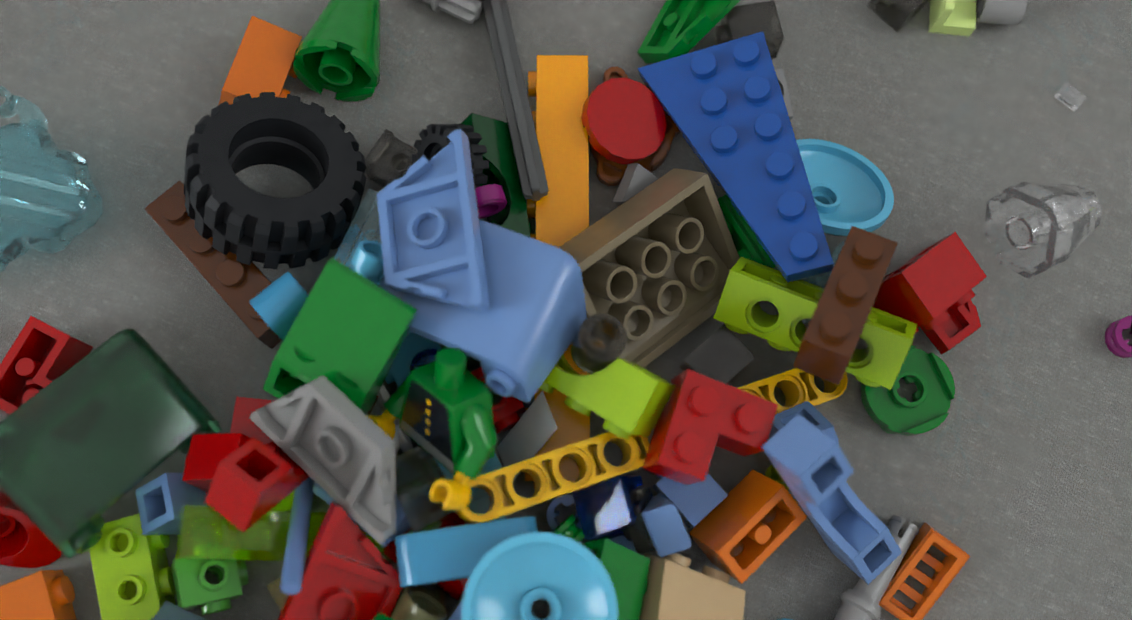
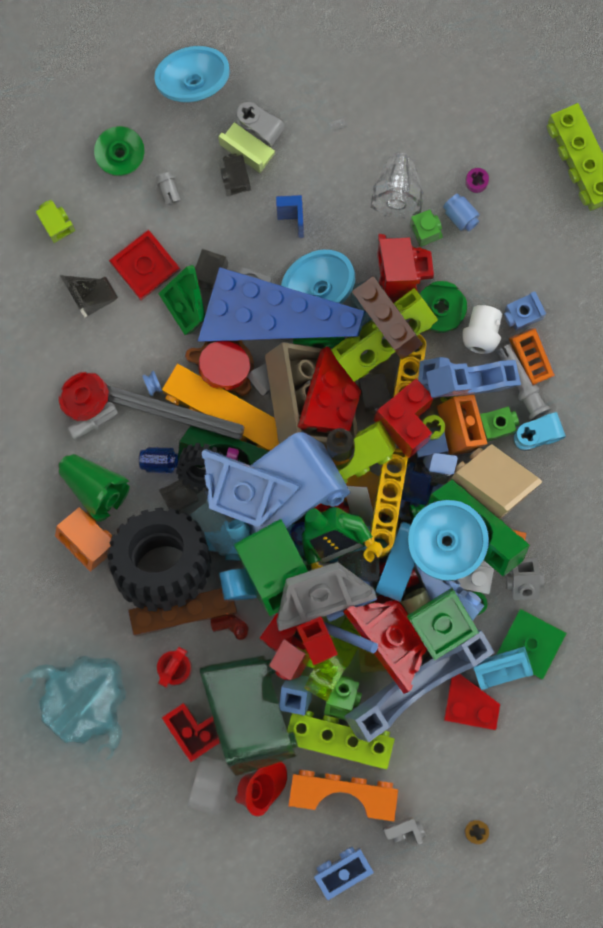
camera: 55 degrees left, 5 degrees up
(126, 297) = (174, 668): none -> red piece
(248, 349) = (231, 623): none -> clear red arm
(432, 104) = (158, 460): none -> clear blue brick
(540, 42) = (152, 383): none -> medium blue bush
(665, 294) = (331, 396): none -> red wing
(724, 468) = (437, 434): none -> lime bush
(768, 581) = (492, 430): none -> bright green brick
(909, 89) = (291, 208): none -> blue panel
(912, 474) = (483, 328): none -> white piece
(1000, 534) = (519, 321): none -> medium blue brick
(1011, 299) = (426, 227): none -> bright green brick
(1068, 339) = (461, 212): none -> medium blue brick

